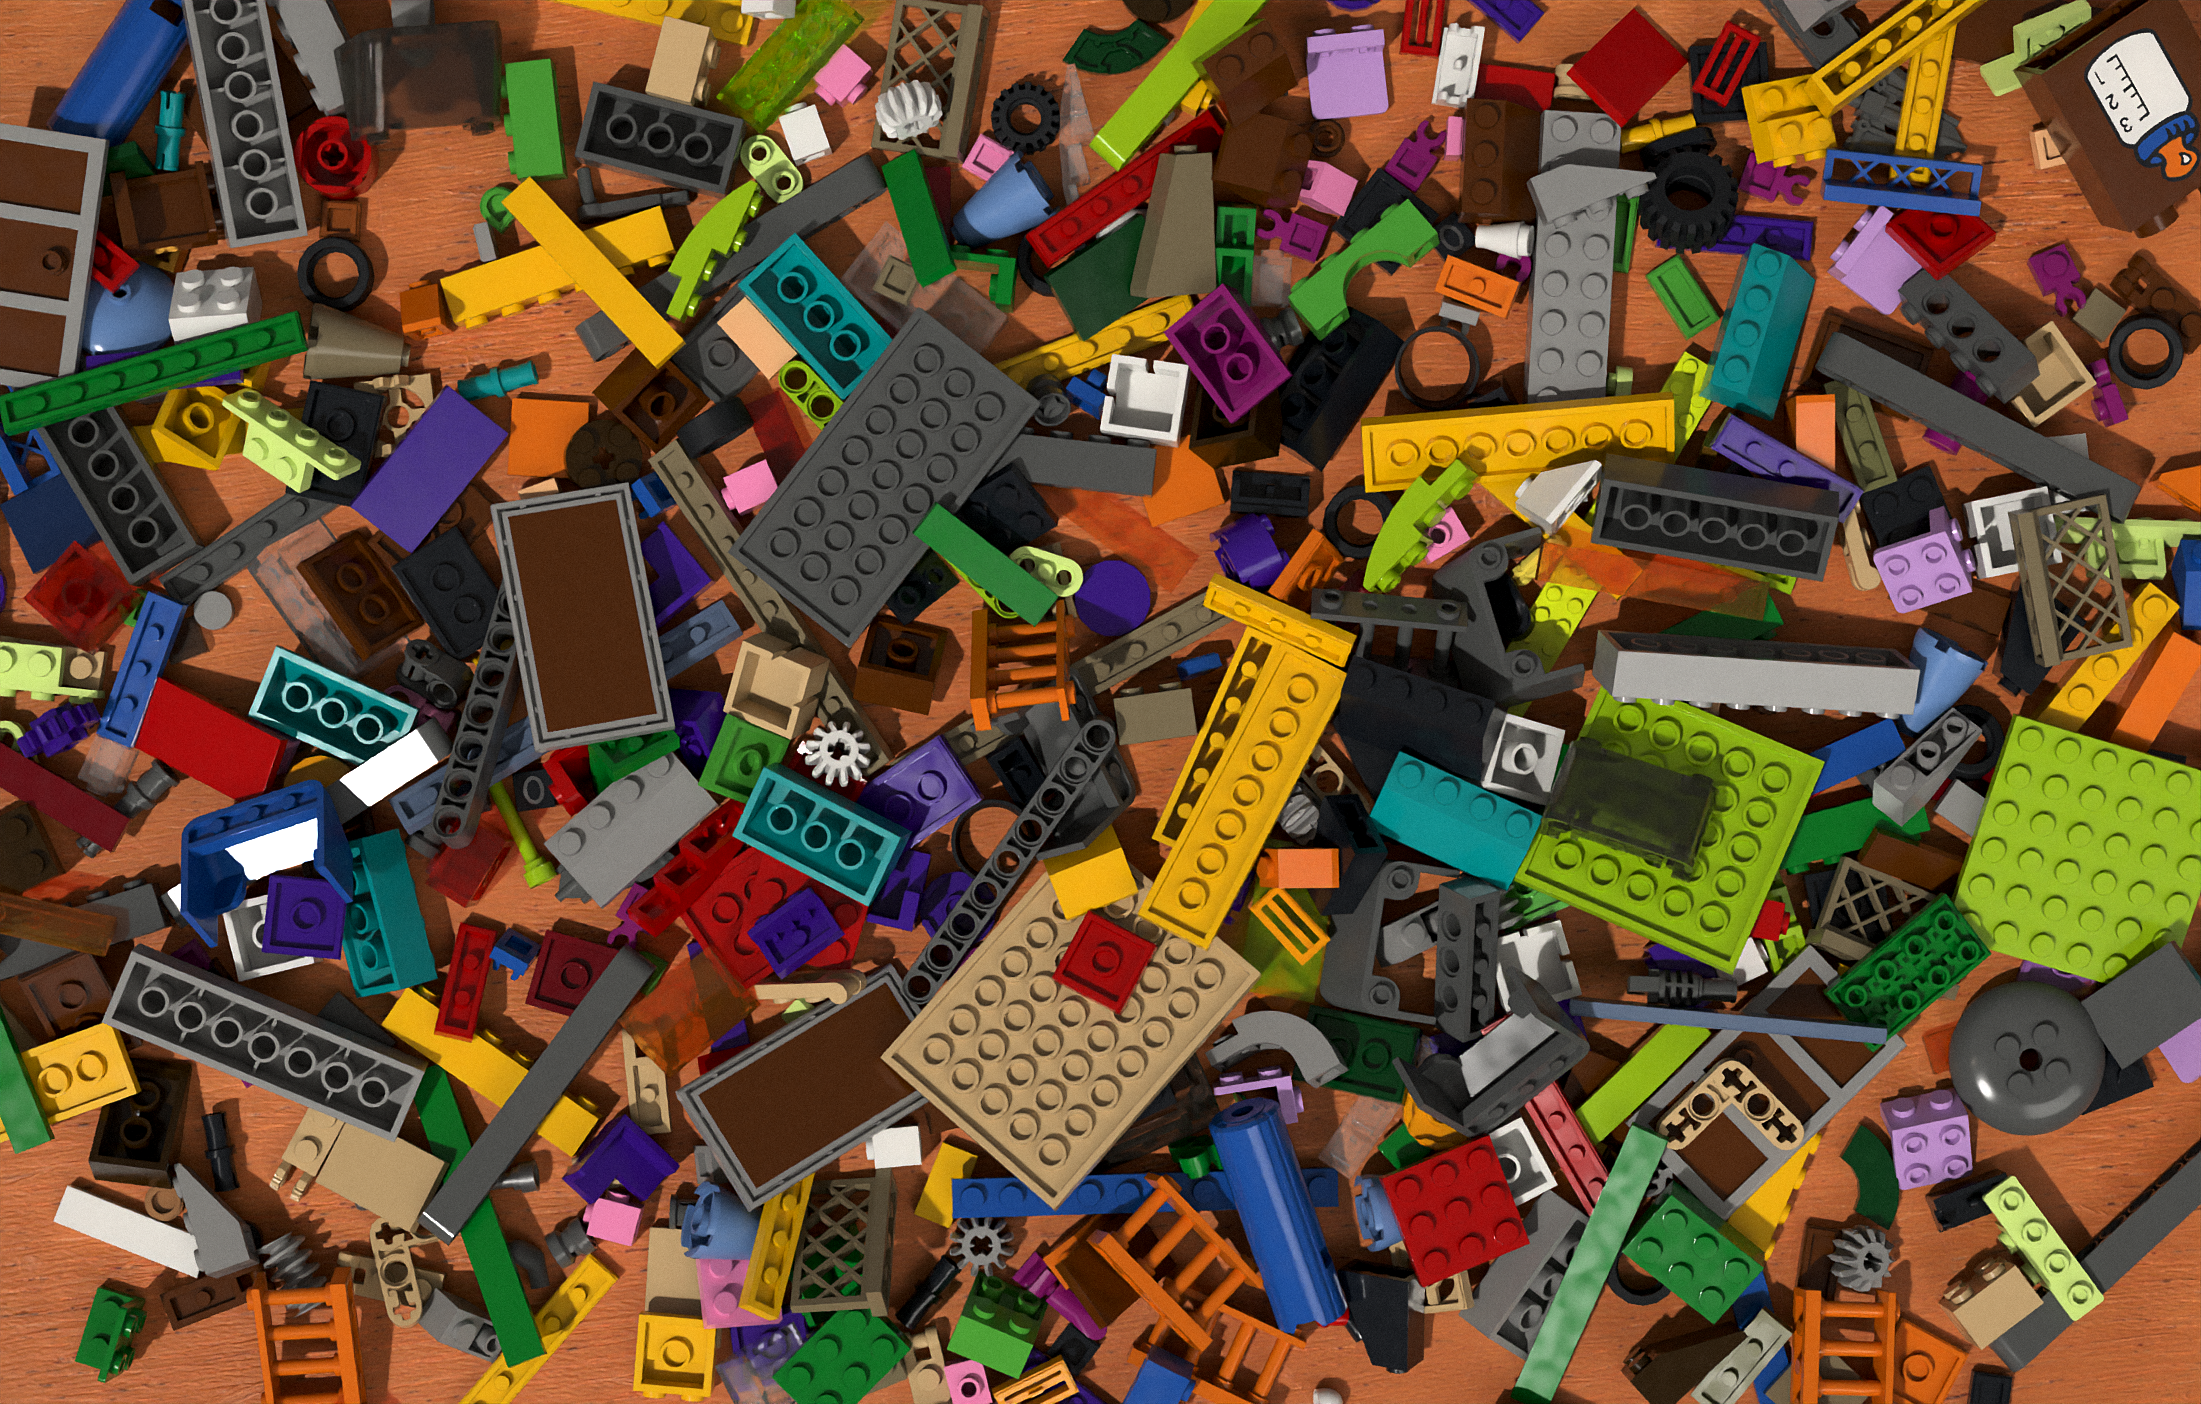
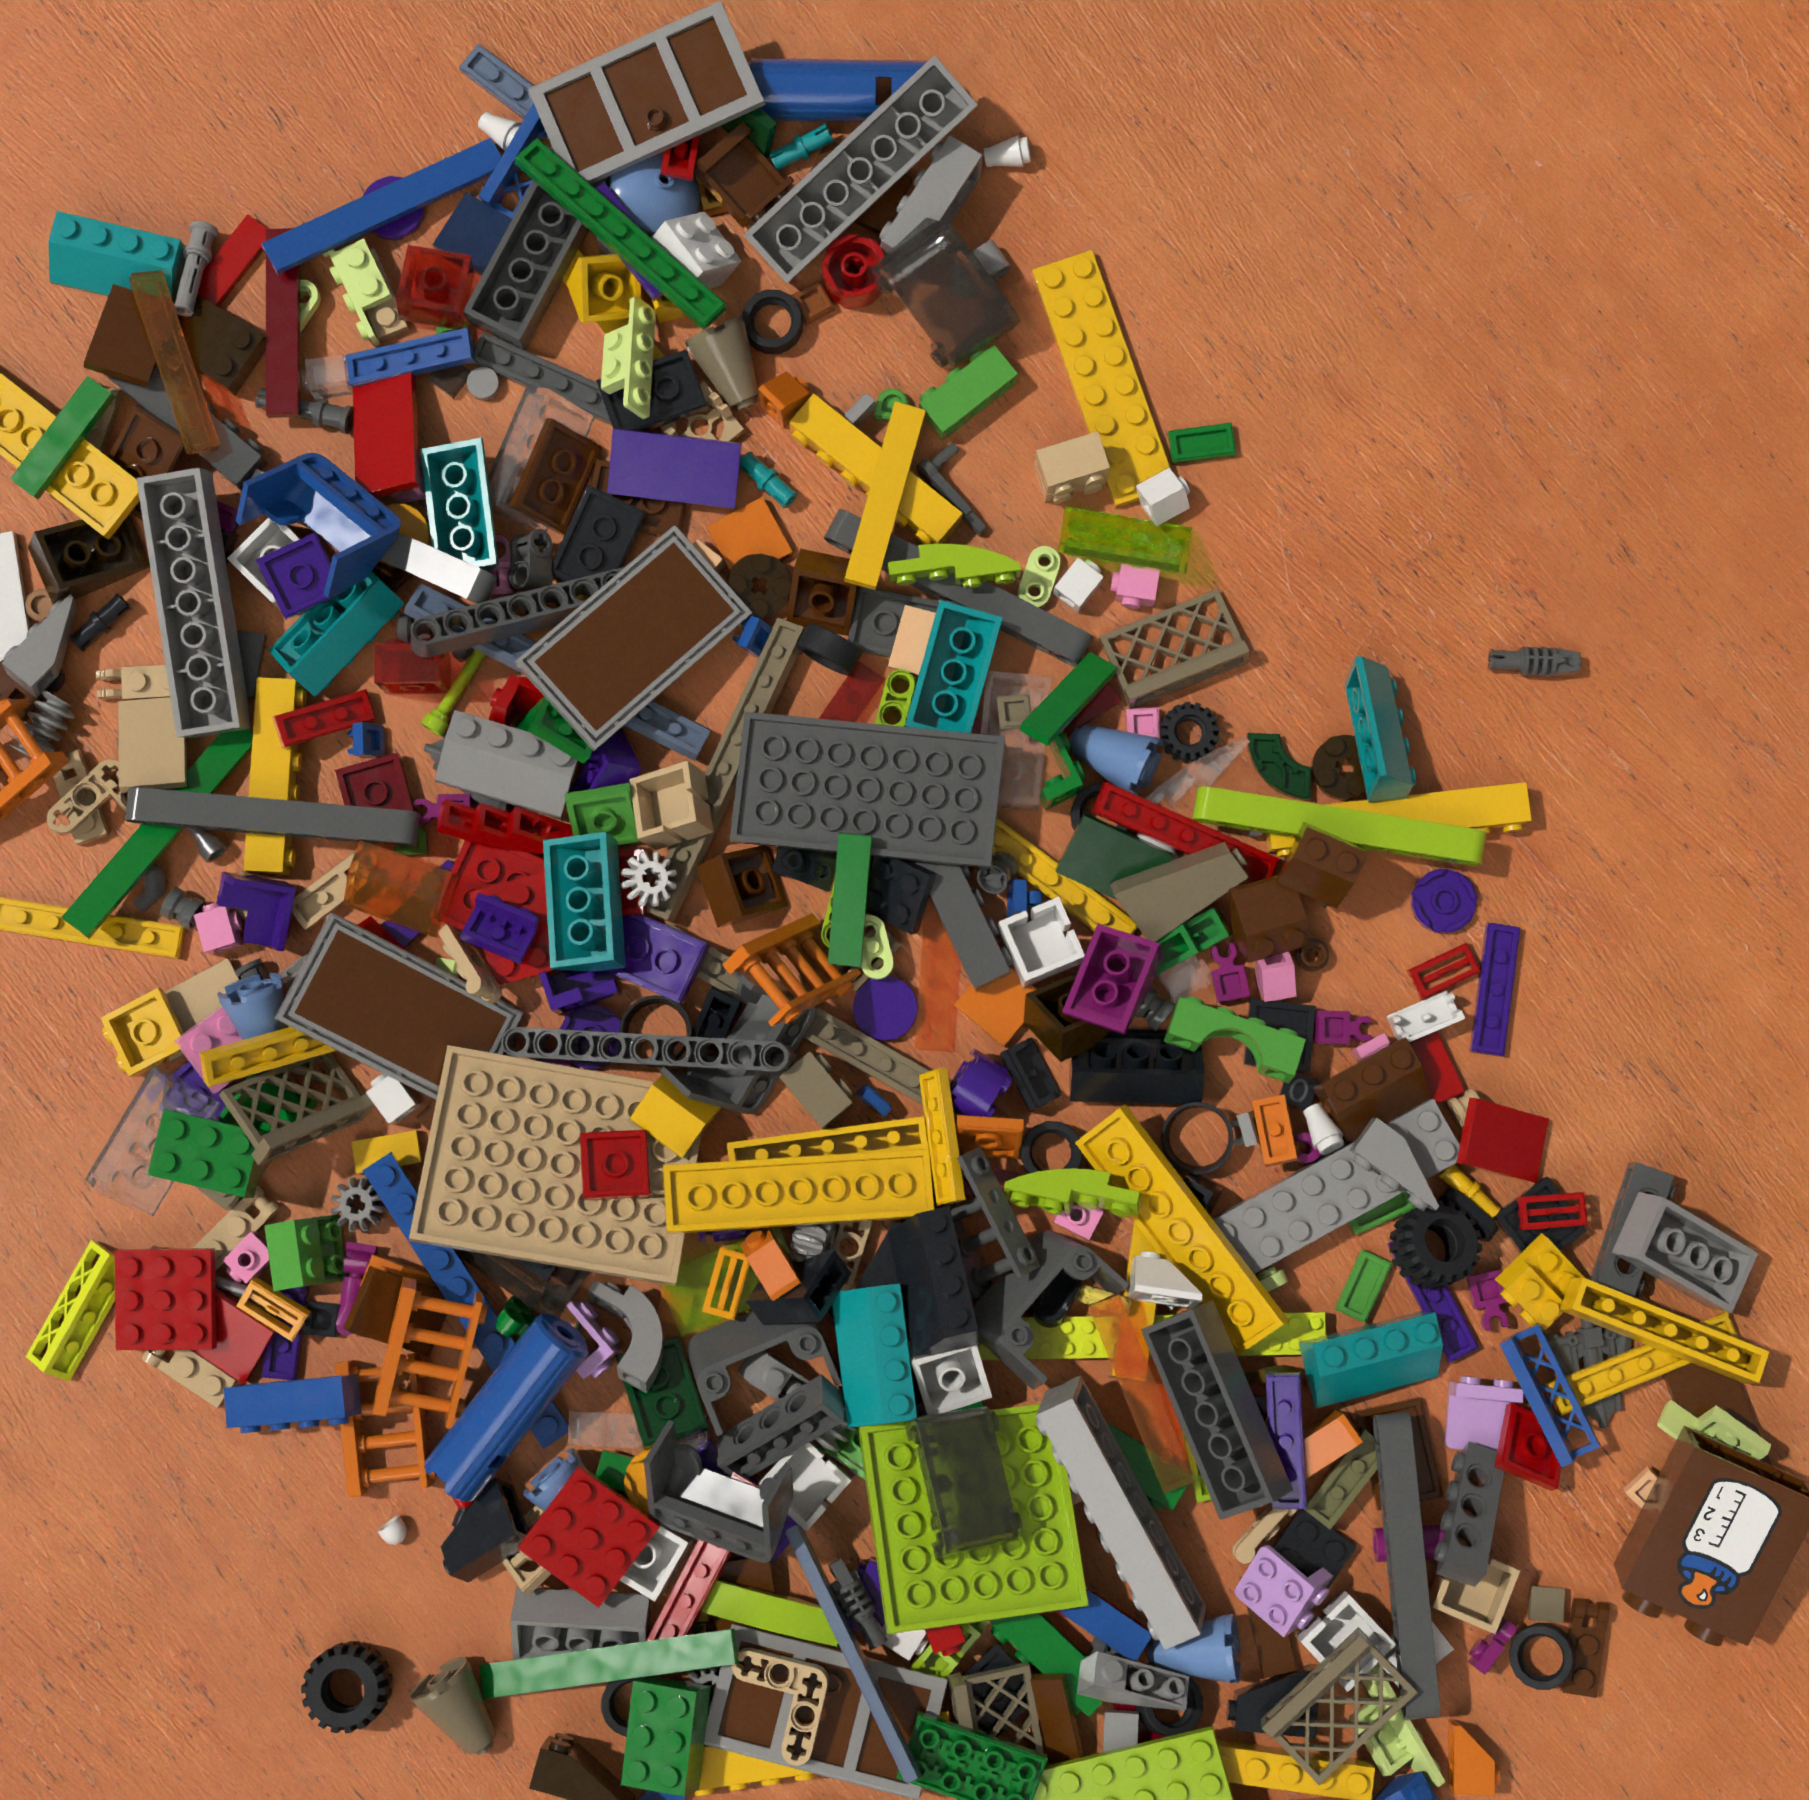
camera: 60 degrees right, 5 degrees down
(59, 730) = (330, 326): dark purple gear -> none
(460, 1325) = (74, 864): light grey slope -> none
(533, 791) = (489, 680): black tile -> none
(660, 140) = (1009, 486): dark grey brick -> none
(680, 574) = (710, 691): dark purple panel -> none
(749, 487) = (801, 699): bright pink brick -> none
(908, 109) = (1141, 644): white gear -> none
(928, 1292) = (300, 1187): black pin -> none
(1346, 73) = (1368, 940): lavender bracket -> none
(2056, 274) = (1556, 1553): magenta plate -> none

